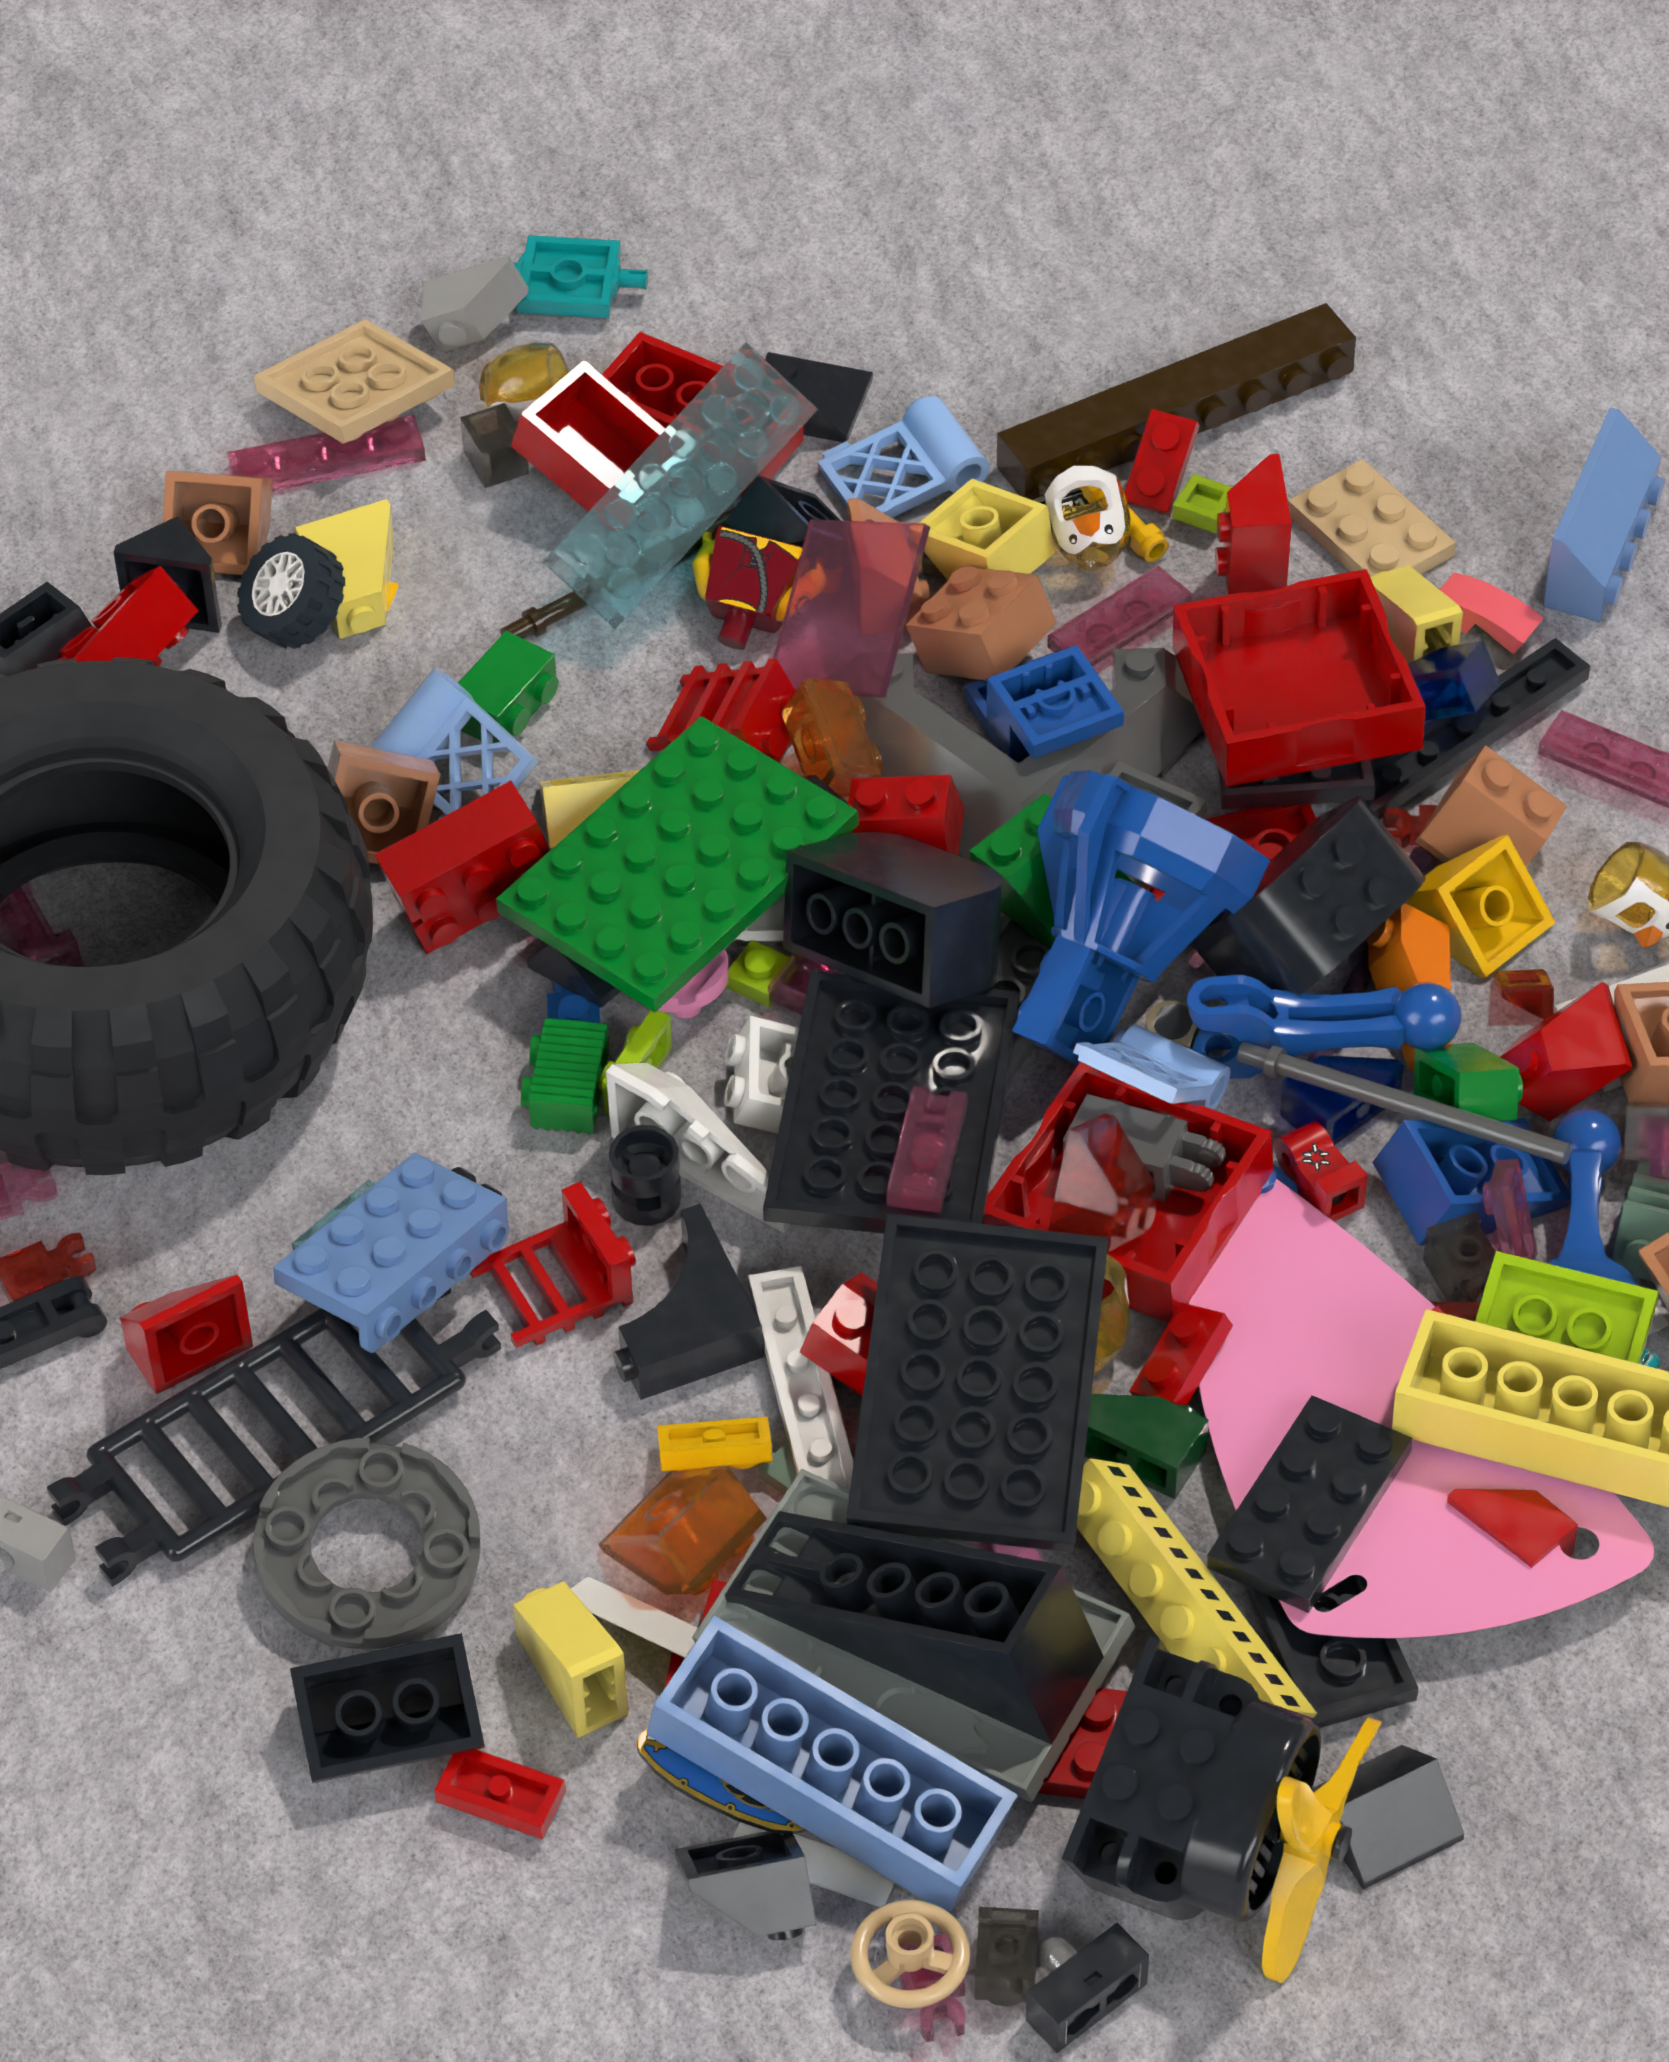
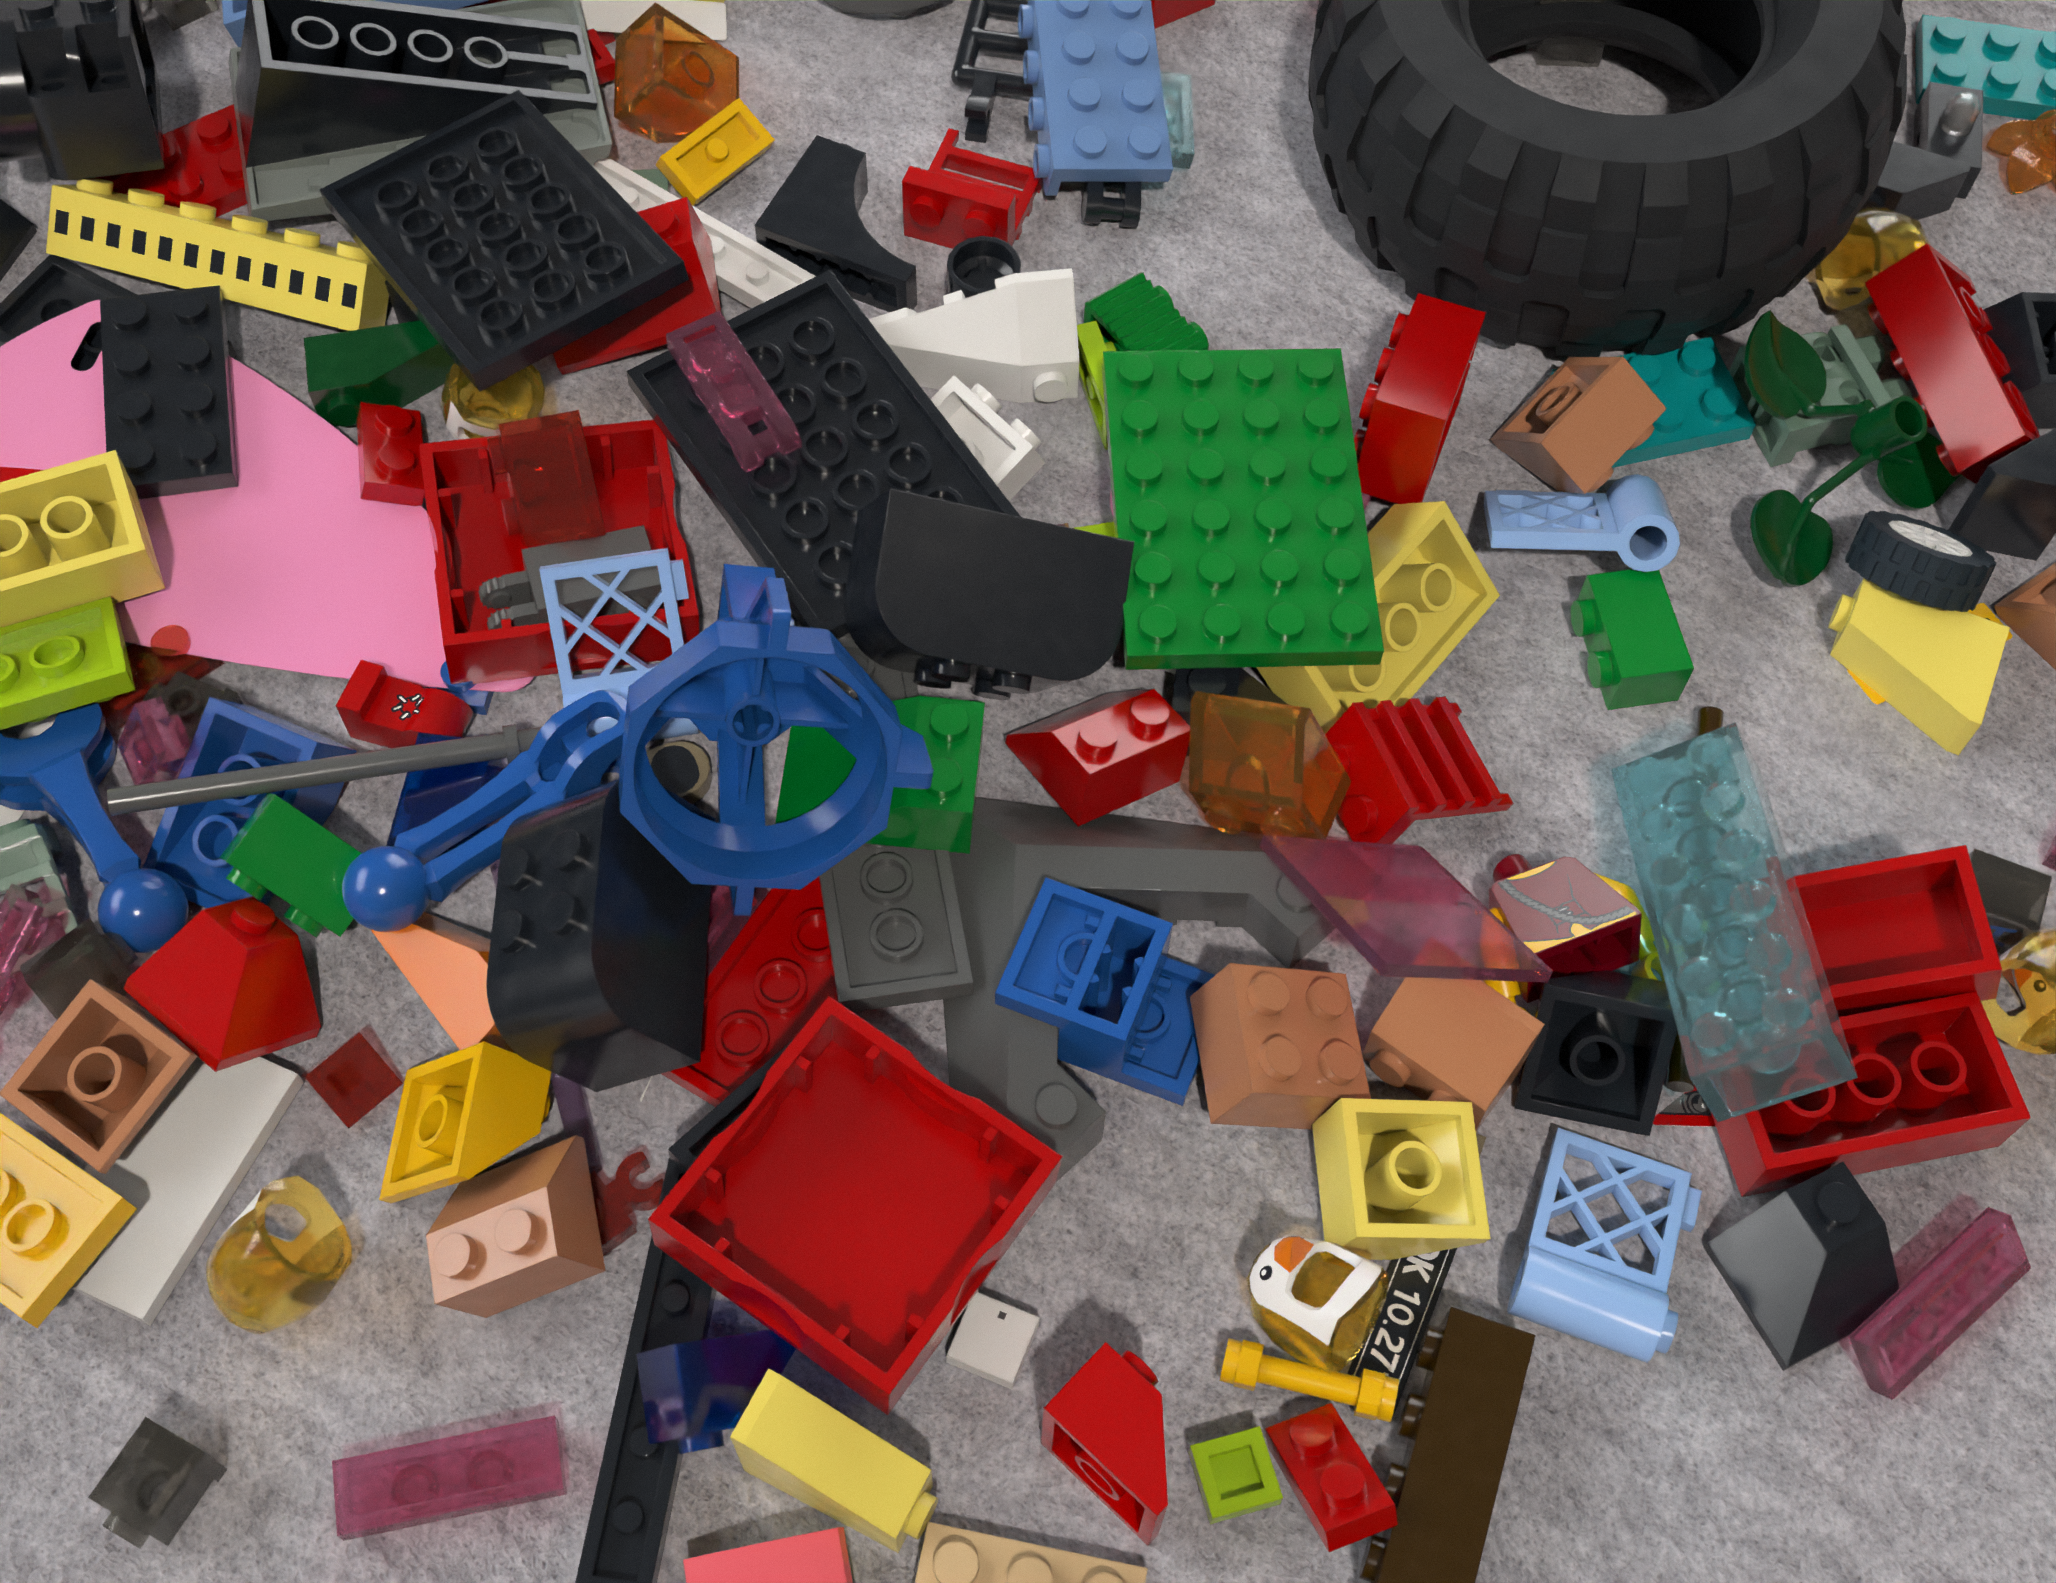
camera: 135 degrees right, 10 degrees up
(233, 636) = (1791, 377): none -> dark green plant
(768, 338) = (1939, 1303): none -> clear pink plate
(1121, 616) = (1168, 1219): clear pink plate -> none

